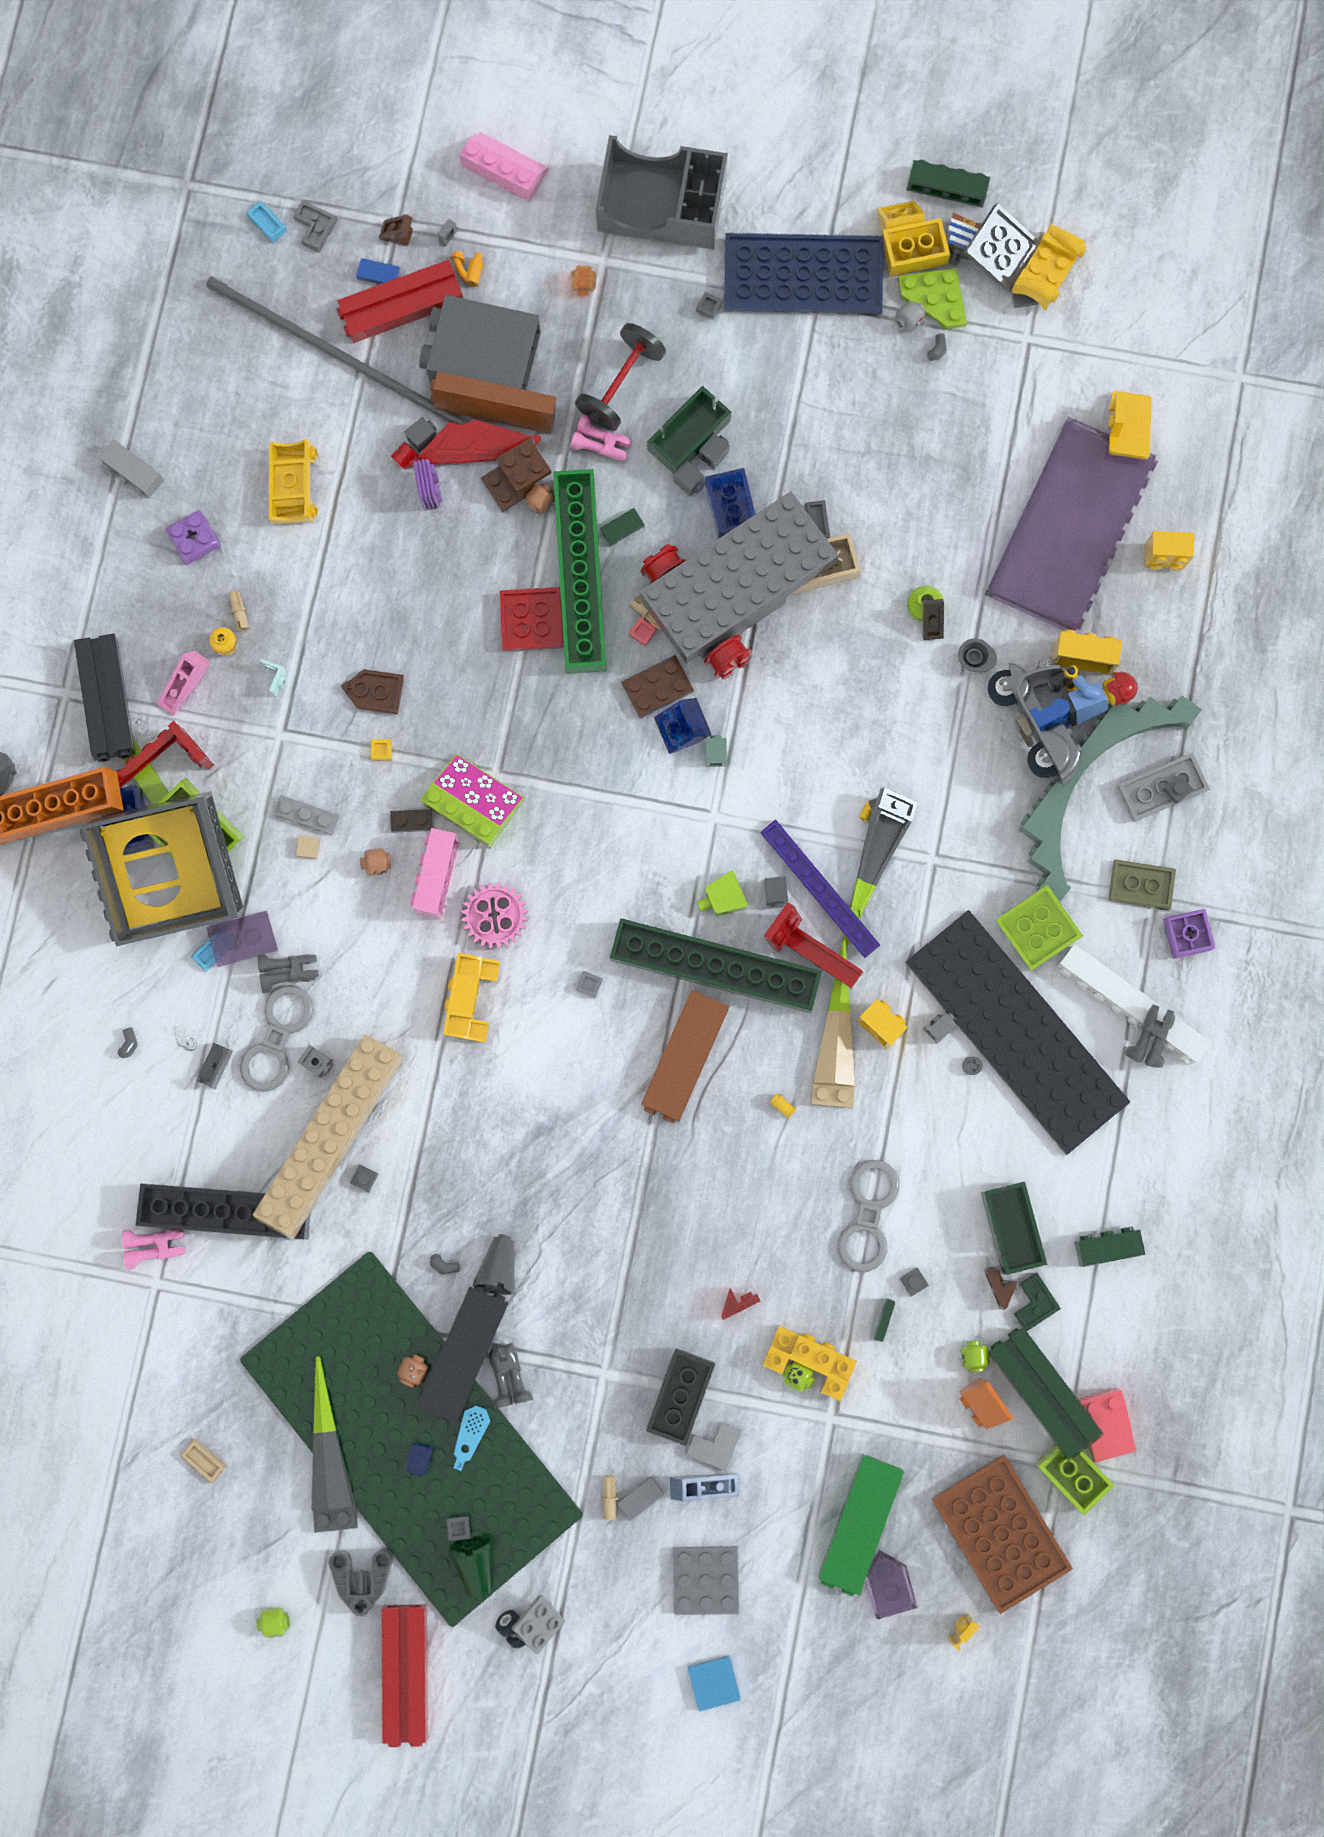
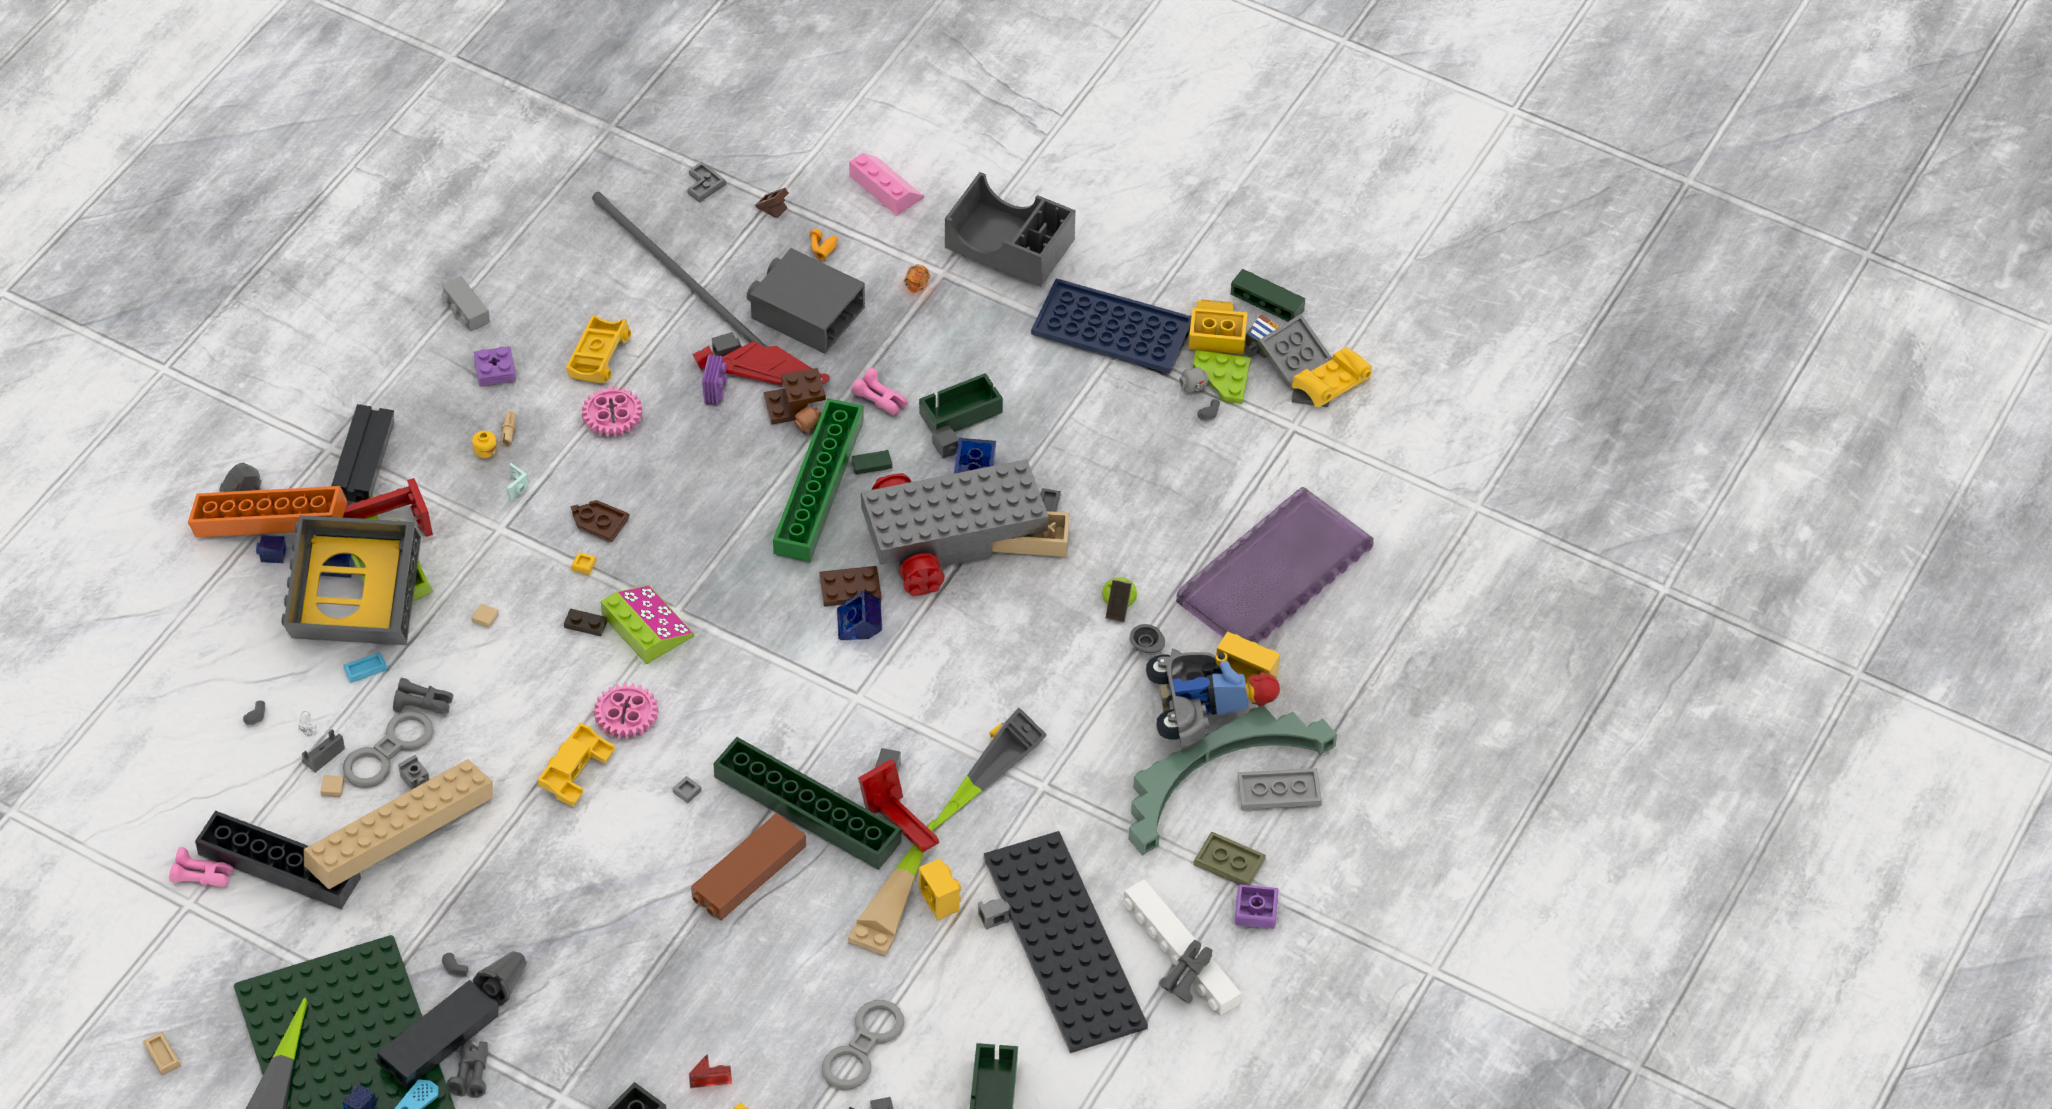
camera: 15 degrees right, 30 degrees down
(60, 843) = (271, 549): none -> clear blue brick
(183, 681) = (437, 462): bright pink slope -> none
(239, 1100) = (332, 785): none -> tan tile
(242, 939) = (394, 663): clear purple tile -> none
(266, 221) = (664, 169): medium azure tile -> none
(306, 815) = (495, 592): light grey plate -> none
(319, 563) = (626, 410): none -> bright pink gear
(364, 1178) = (414, 877): dark grey plate -> none
(375, 862) = (539, 640): nougat head -> none
(376, 271) = (743, 228): blue tile -> none
(397, 301) = (745, 249): red brick -> none
(412, 1371) = (385, 1031): nougat head -> none
(435, 873) = (588, 660): bright pink brick -> none
(447, 232) = (814, 215): flat silver tile -> none
(493, 402) = (799, 337): dark orange brick -> none
(531, 619) = (758, 504): red plate -> none
(639, 607) = (862, 525): tan axle -> none
(642, 631) = (855, 542): coral tile -> none
(643, 344) = (946, 331): pearl dark grey piece -> none
(709, 305) = (1019, 326): dark grey plate -> none
(714, 450) = (977, 427): dark grey brick -> none
(716, 751) = (880, 646): sand green brick -> none
(723, 896) = (838, 755): lime torso -> none
(782, 1105) = (821, 932): yellow pin -> none
(820, 888) = (929, 775): dark purple tile -> none
(977, 1061) = (1008, 948): dark grey bush -> none
(1039, 927) = (1117, 858): lime plate -> none
(1129, 425) = (1355, 505): yellow bracket -> none
(1169, 550) = (1355, 607): yellow brick -> none
(1178, 789) = (1291, 790): dark grey plate -> none

